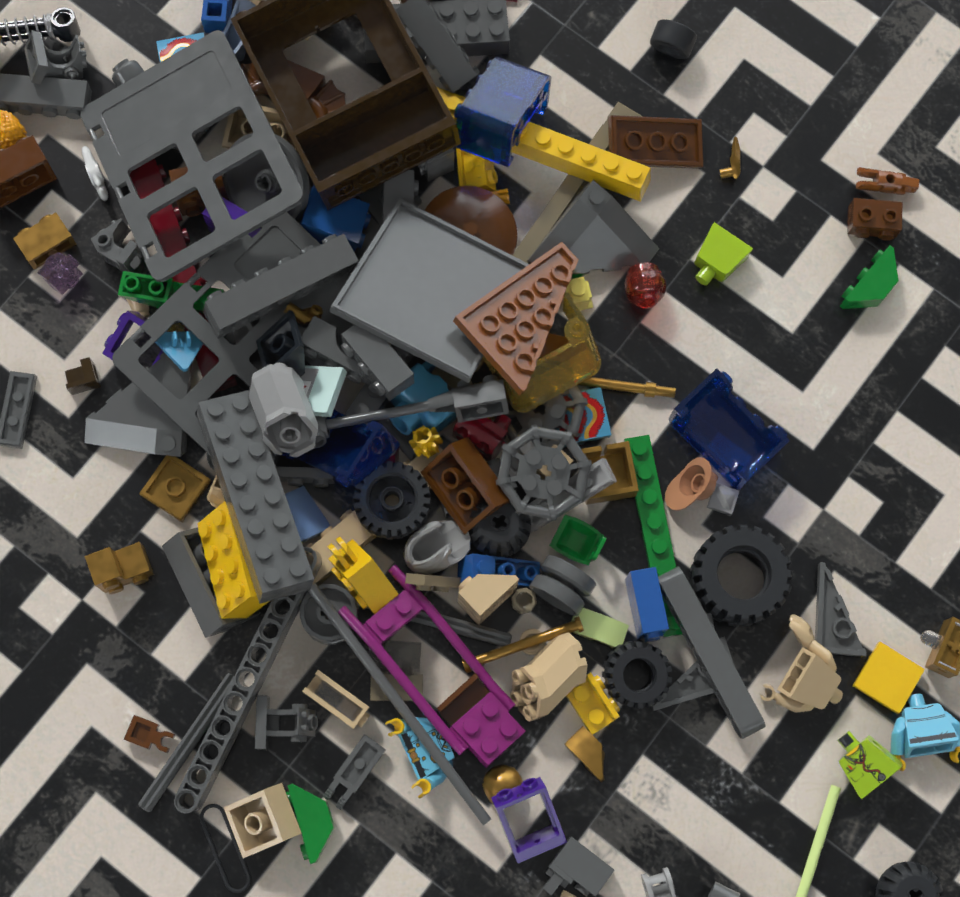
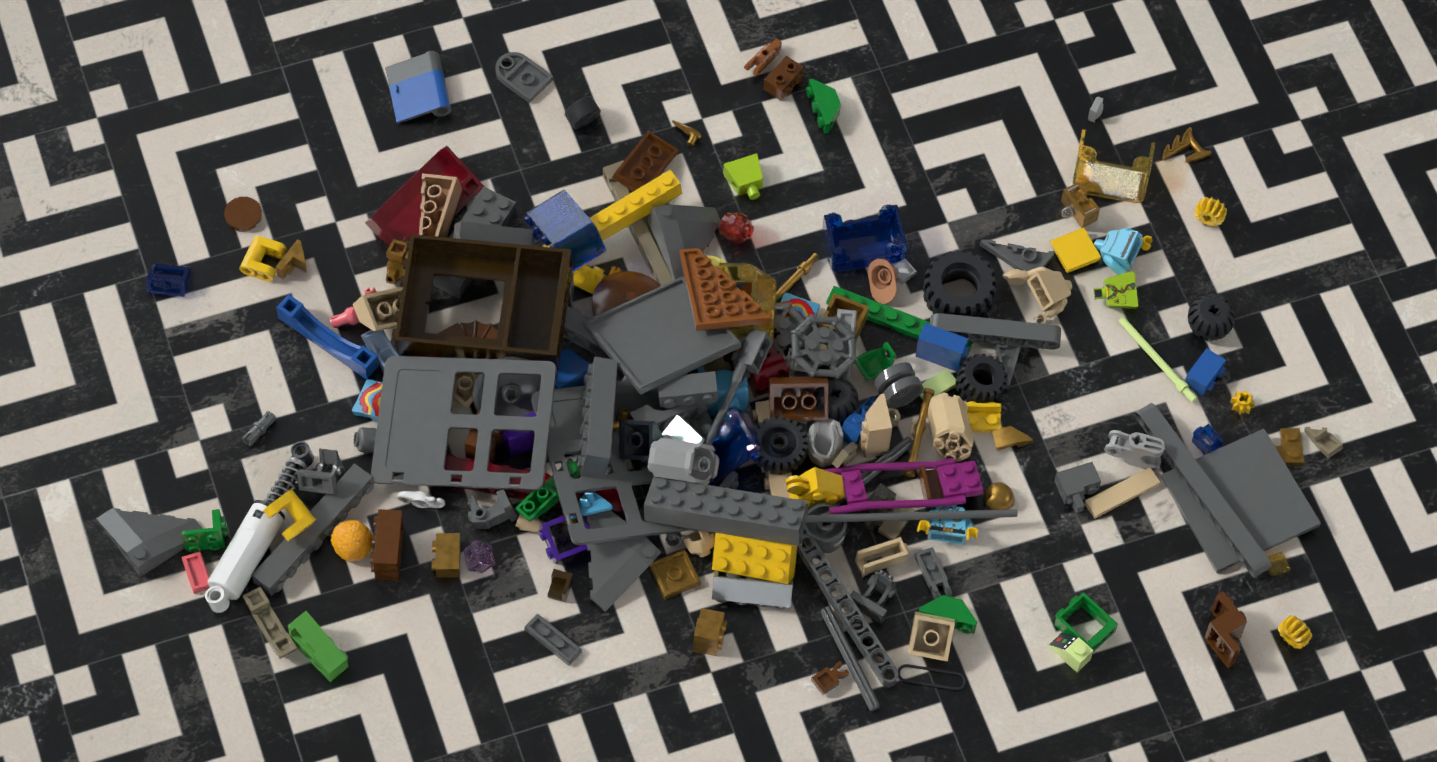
camera: 55 degrees left, 15 degrees down
(425, 441) = (754, 404): yellow gear -> none
(535, 842) = (1047, 490): dark purple window -> none

